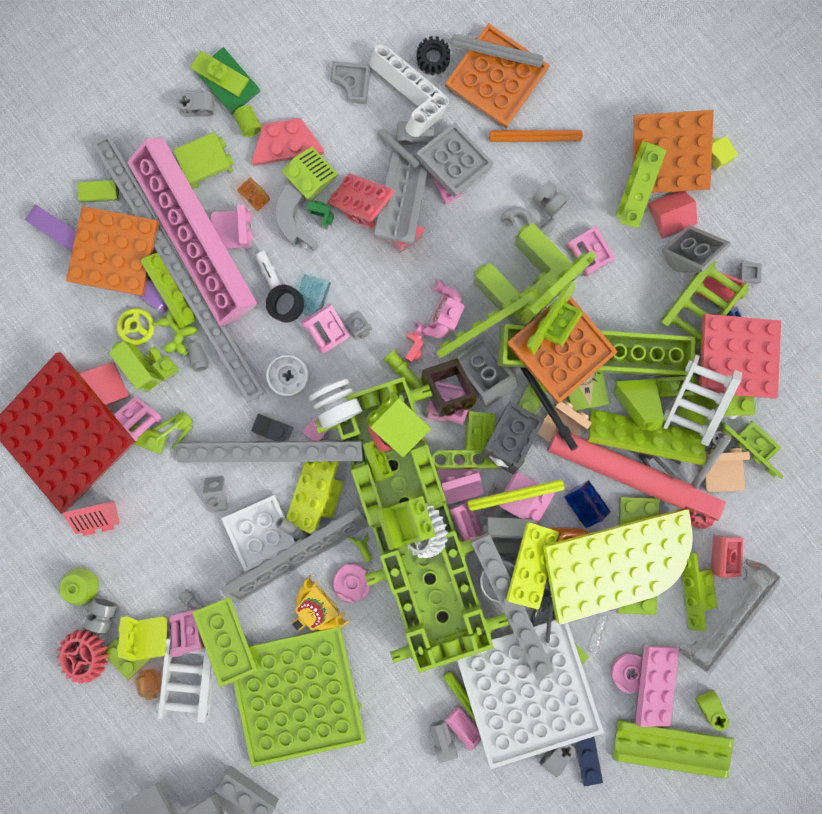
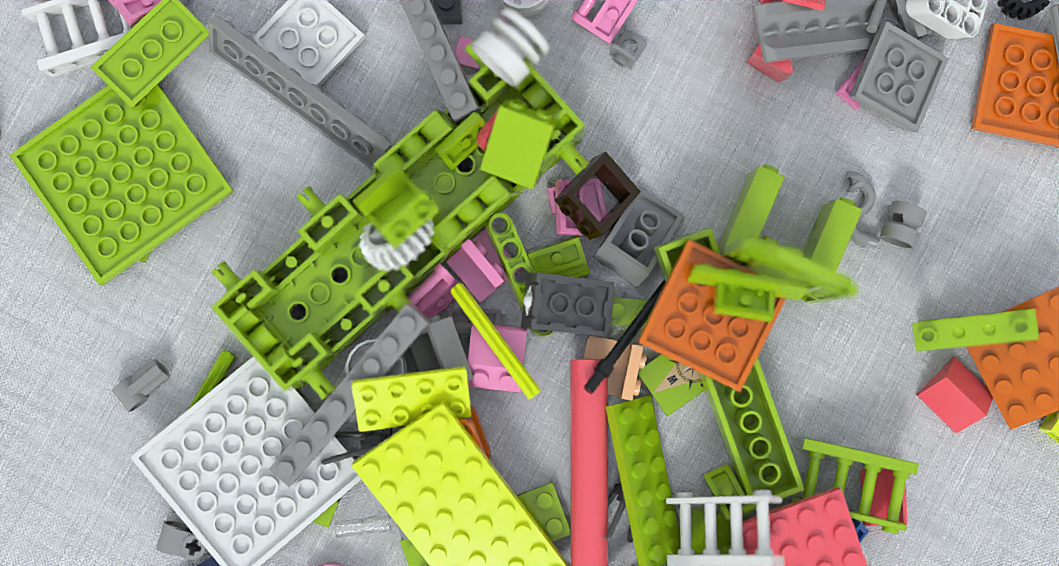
camera: 70 degrees right, 0 degrees up
(291, 529) = (329, 72): light grey piece -> none
(315, 495) = (386, 87): neon yellow bracket -> none
(316, 609) = (242, 149): yellow torso -> none
(351, 583) = (290, 178): bright pink tile -> none
(362, 547) = (345, 177): lime bar -> none
(401, 367) = (596, 126): lime pin -> none
(415, 352) = (625, 135): coral bracket -> none
(445, 315) = (690, 152): bright pink torso -> none
(463, 728) = (169, 402): bright pink tile -> none
(493, 318) = (693, 199): lime plate -> none
(535, 135) = (978, 171): orange axle -> none
(587, 504) = (522, 439): clear blue brick -> none
(592, 241) = (863, 314): bright pink plate -> none
(641, 402) = (687, 455): lime slope -> none
(694, 250) = (919, 439): light grey slope -> none
(750, 272) = (922, 530): light grey plate -> none

